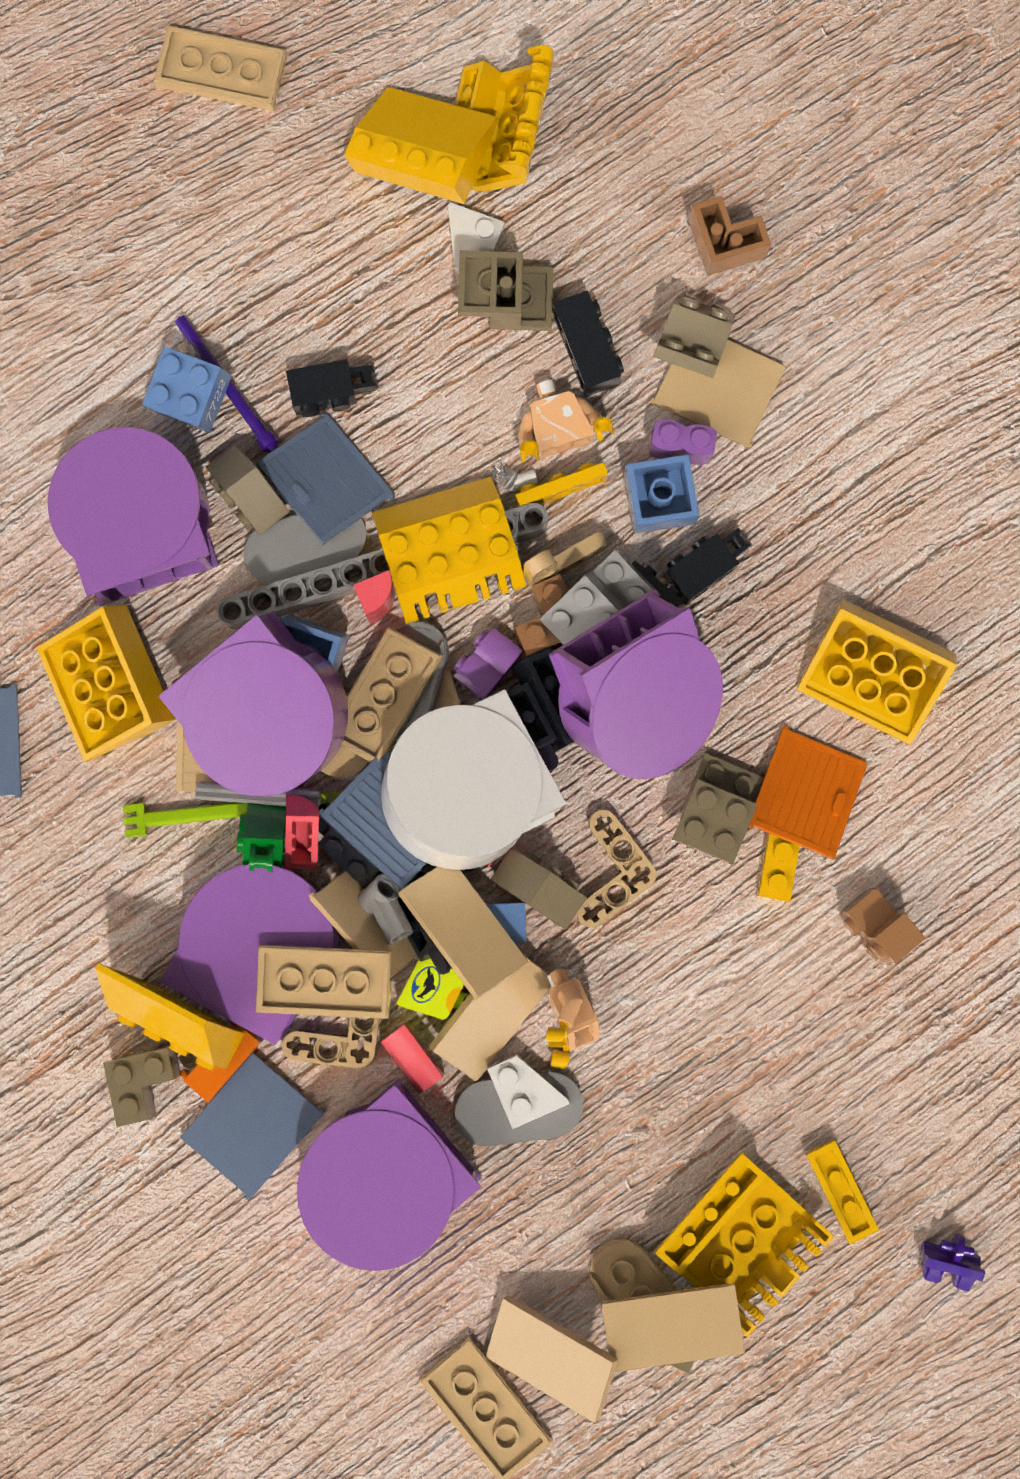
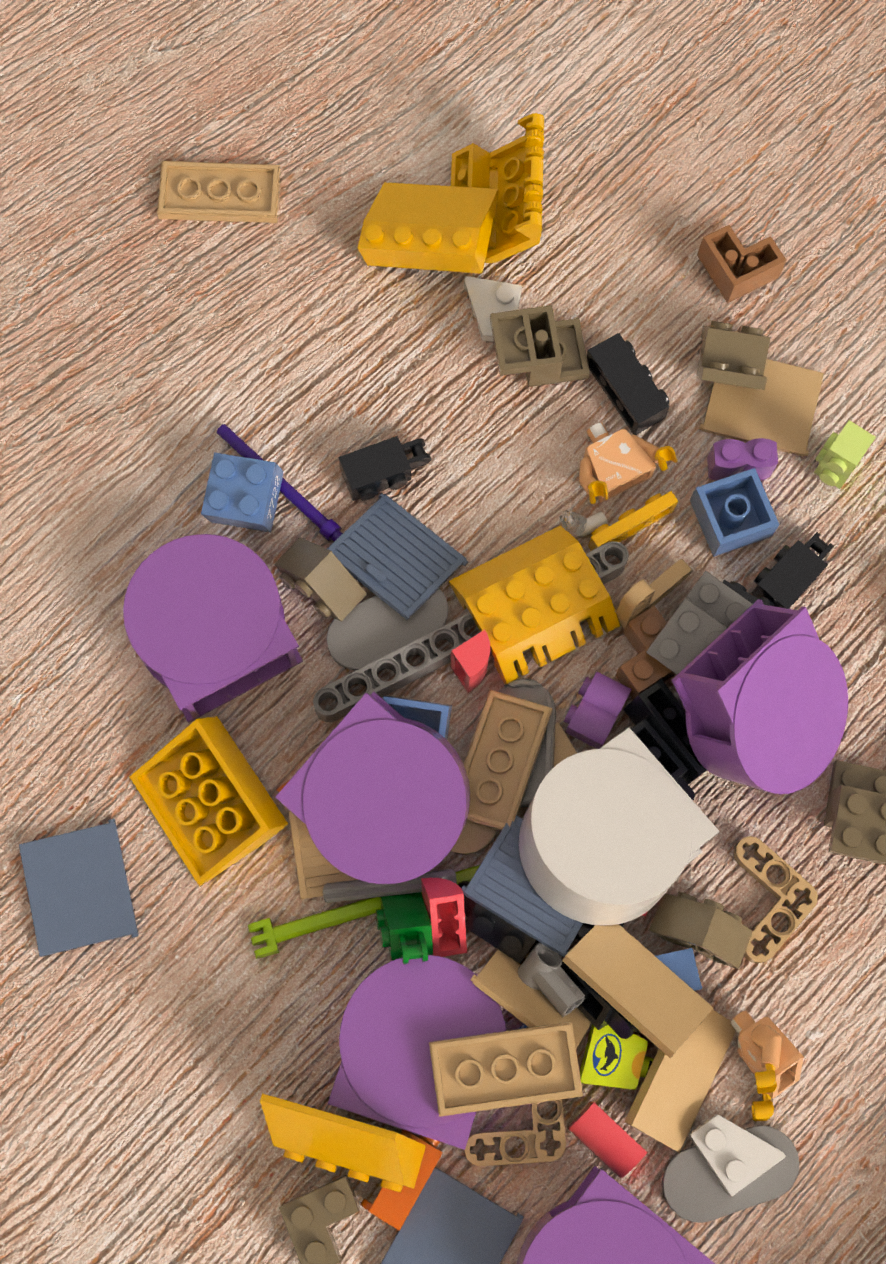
camera: 10 degrees left, 10 degrees down
(780, 455) = (842, 454): none -> yellowish green brick

